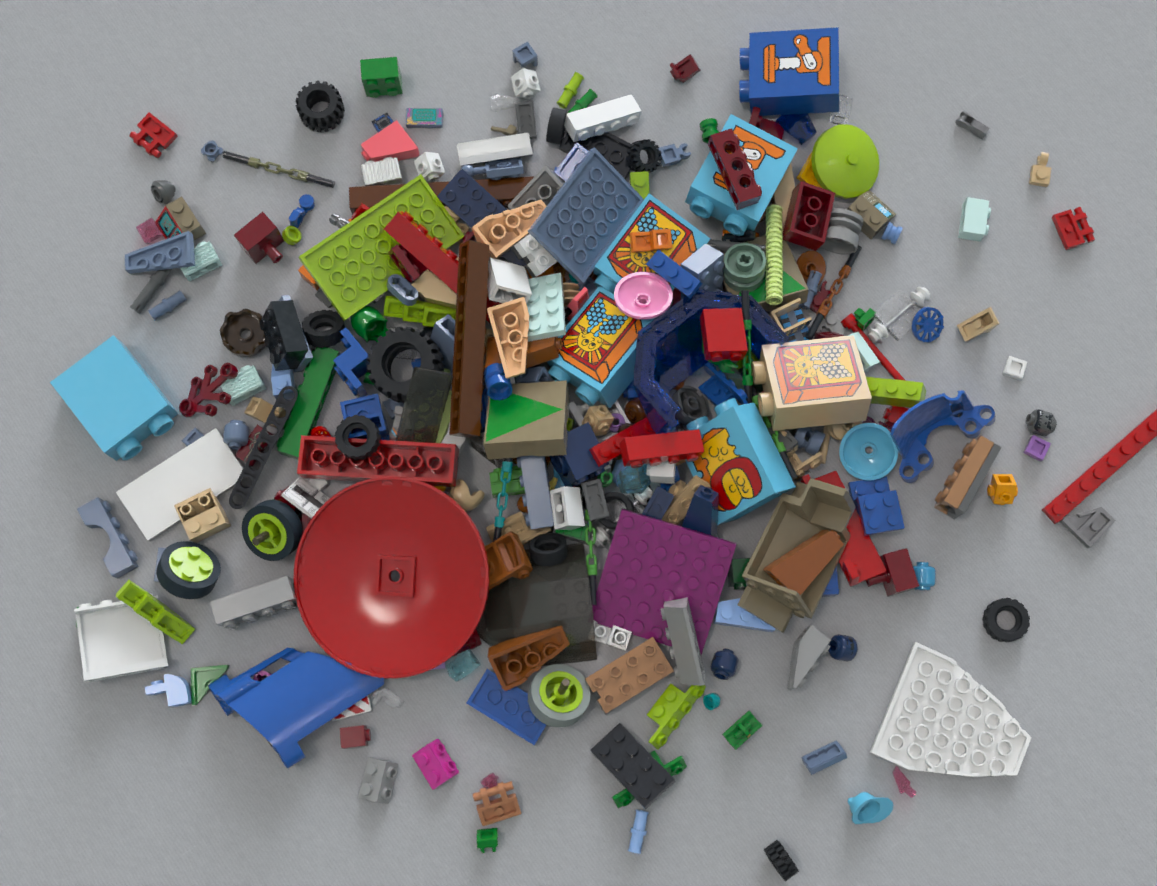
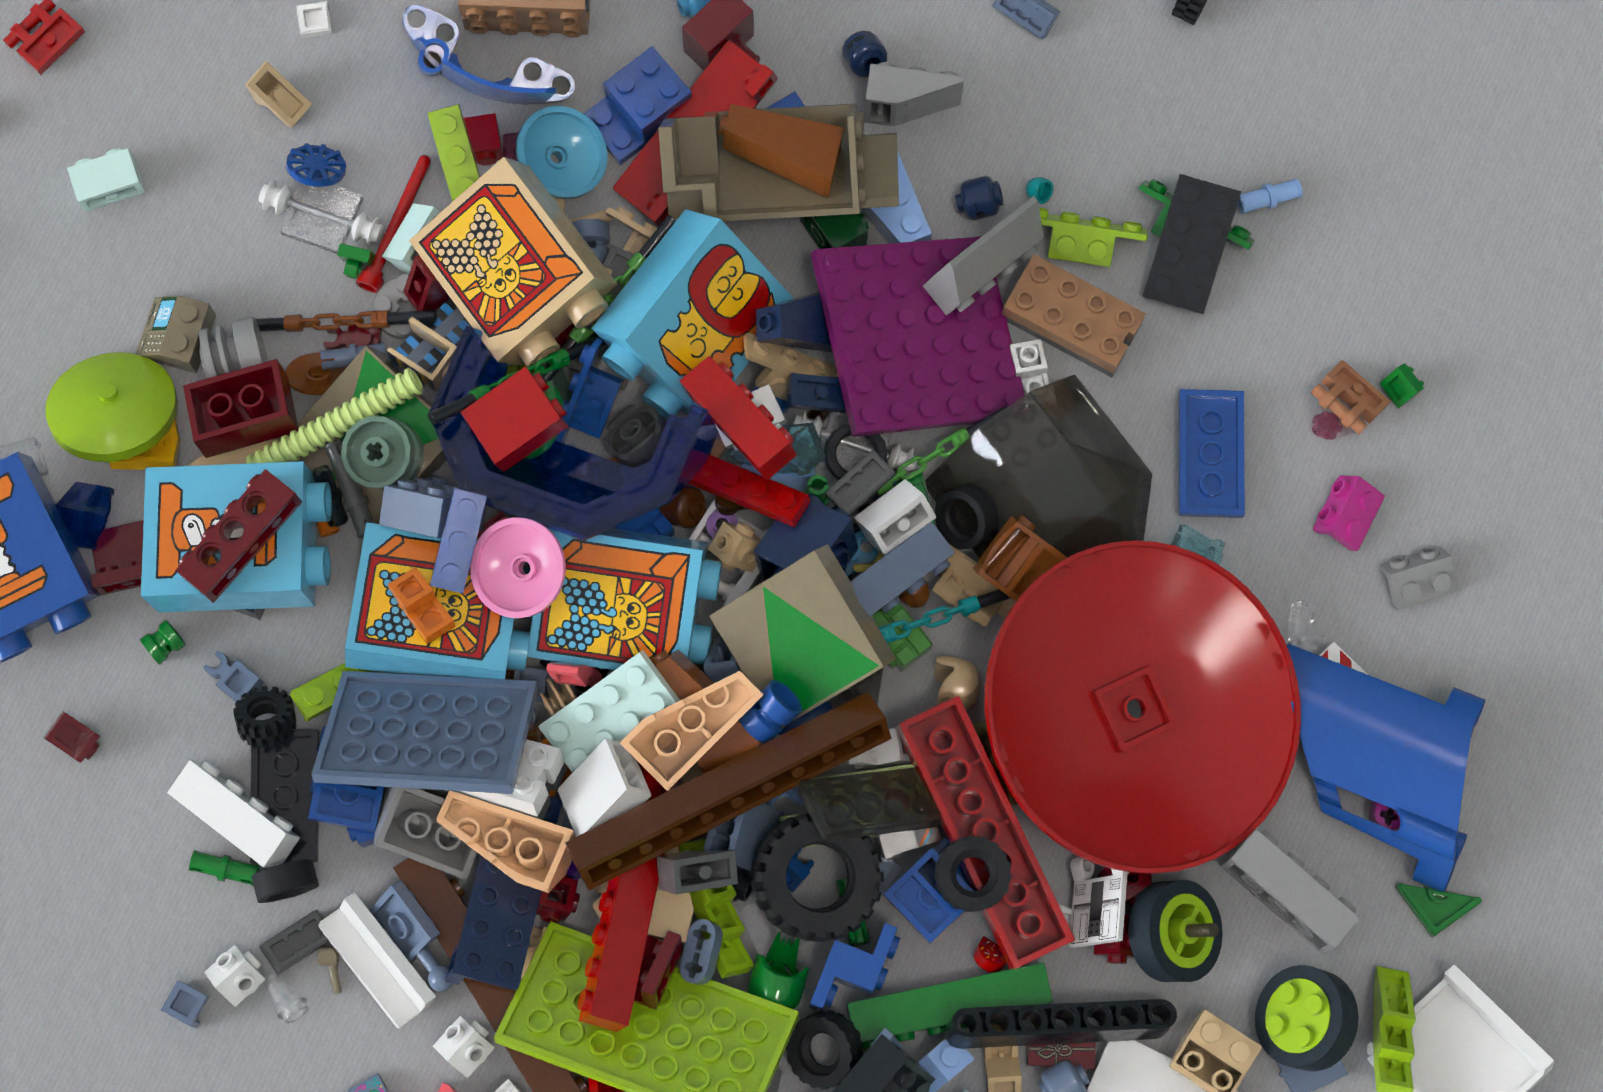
camera: 120 degrees left, 0 degrees up
(175, 687) = (1473, 938): light blue brick -> none
(354, 736) = (1382, 641): dark red brick -> none
(440, 303) = (696, 870): none -> dark grey slope
(522, 656) = (1140, 470): dark orange wedge -> none
(558, 695) = (1159, 390): wheel -> none
(570, 90) = (206, 900): lime pin -> none
(742, 730) = (1055, 128): green hips -> none
(891, 233) = (193, 284): medium blue wheel -> none

